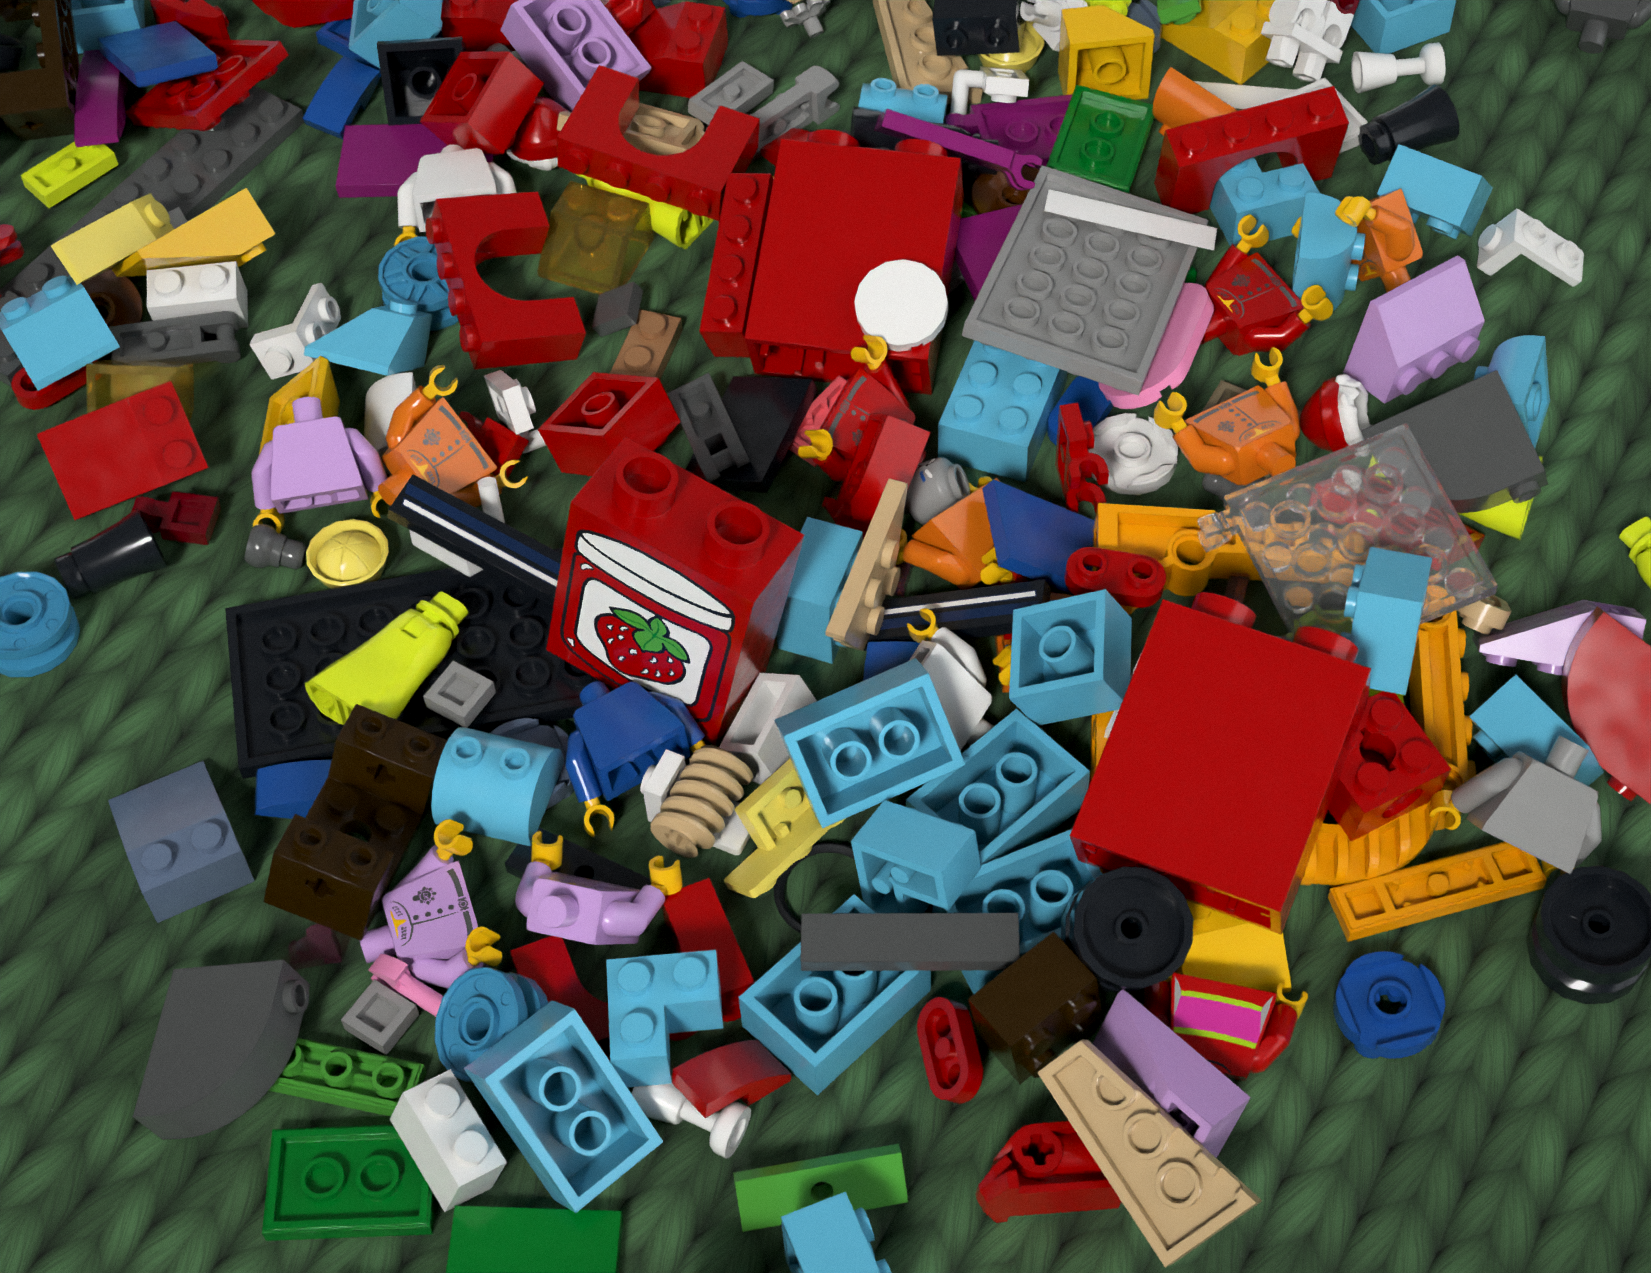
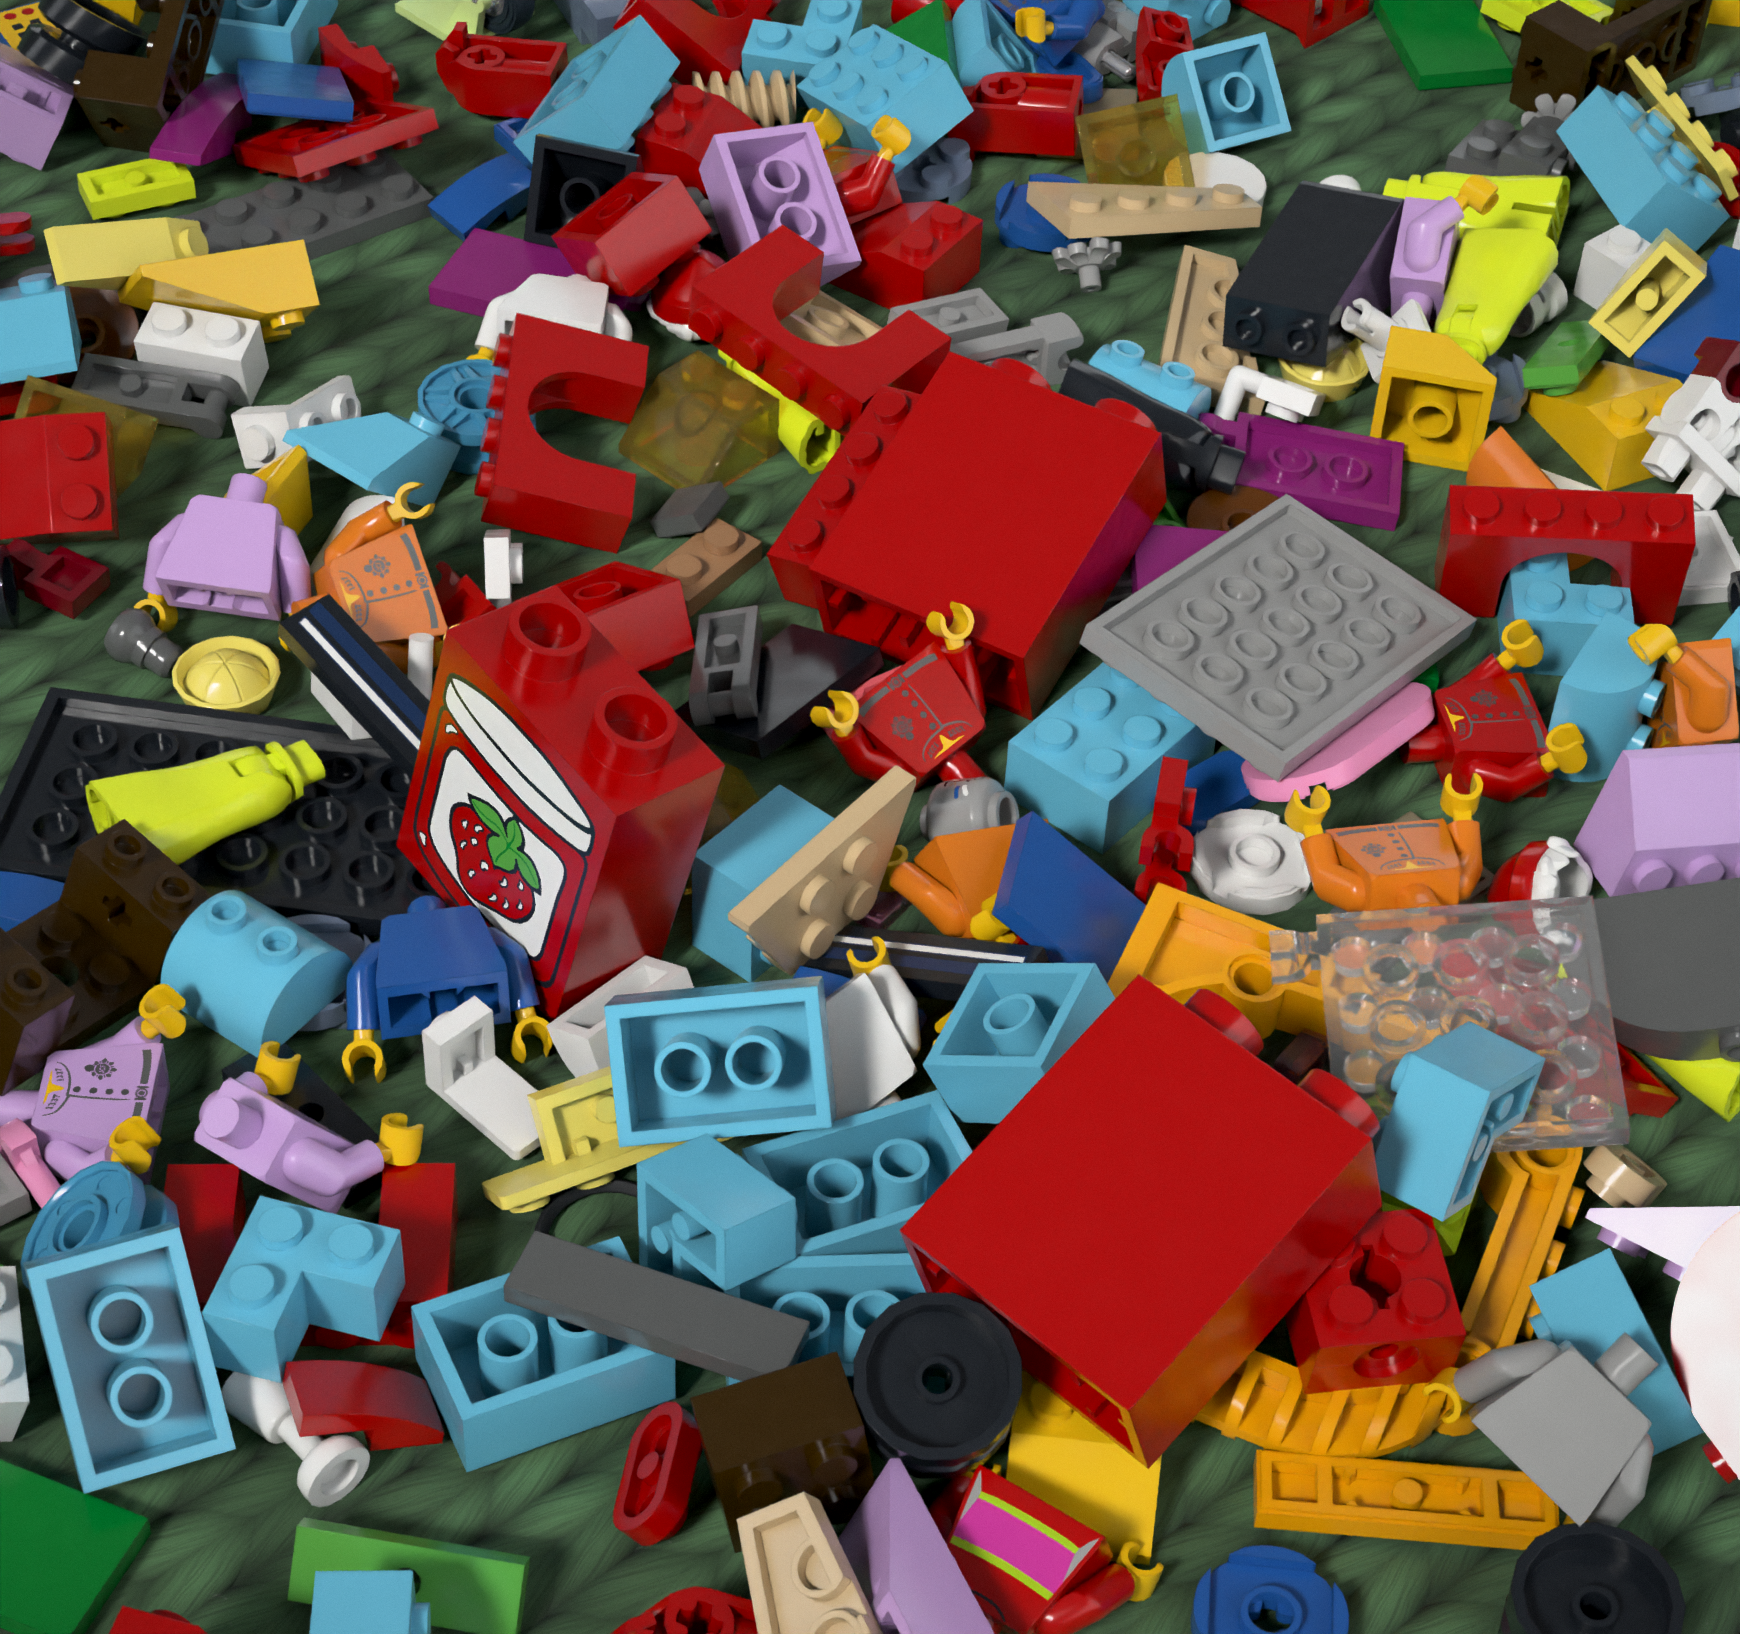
camera: 15 degrees right, 10 degrees down
(459, 694) = (265, 860): light grey plate -> none
(700, 801) = (487, 1069): tan piece -> none
(885, 451) = (924, 745): red piece -> none
(901, 304) = (1015, 581): white tile -> none
(960, 146) = (1183, 433): magenta tile -> none
(1102, 138) = (1386, 493): green tile -> none
(1116, 575) = (1132, 956): red plate -> none
(1130, 219) = (1372, 586): white sticker -> none

